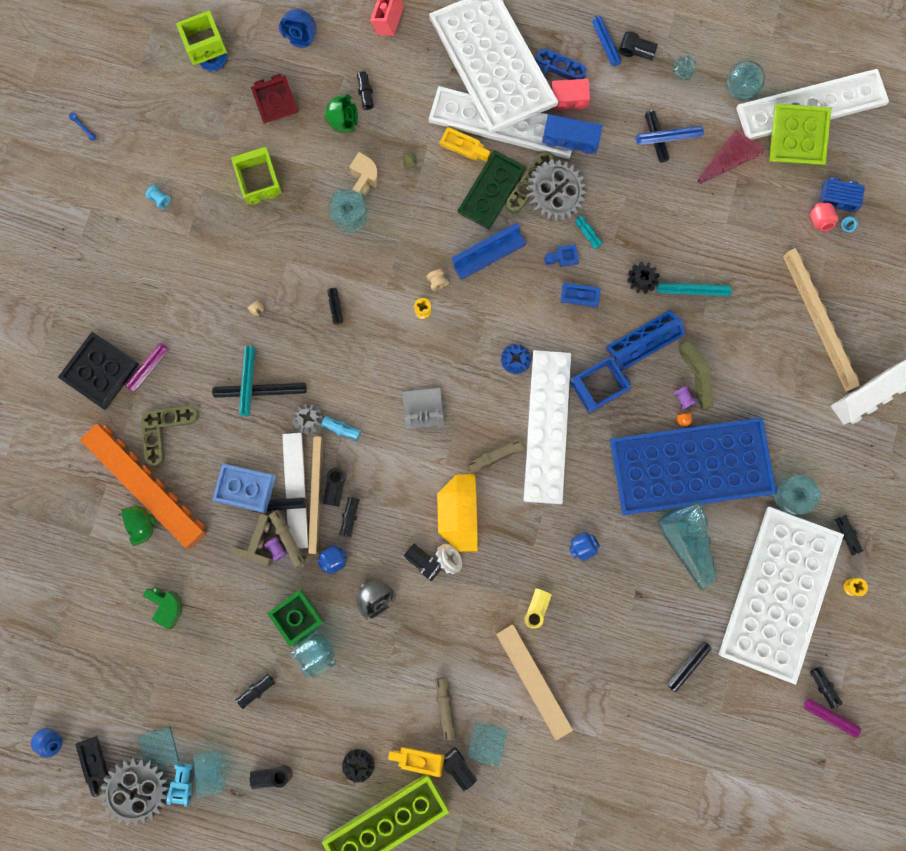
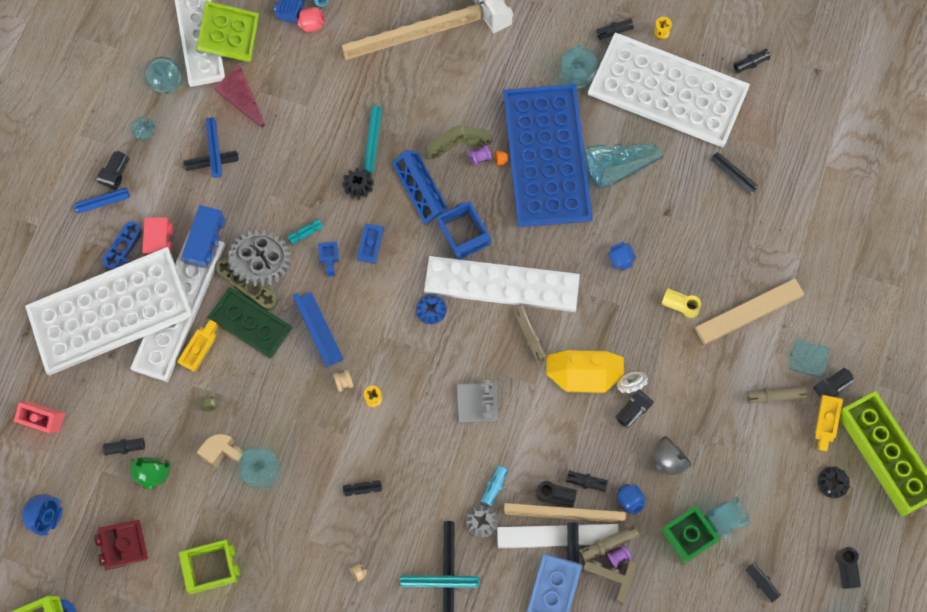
camera: 90 degrees left, 10 degrees down
(832, 718) = (778, 58): magenta axle -> none

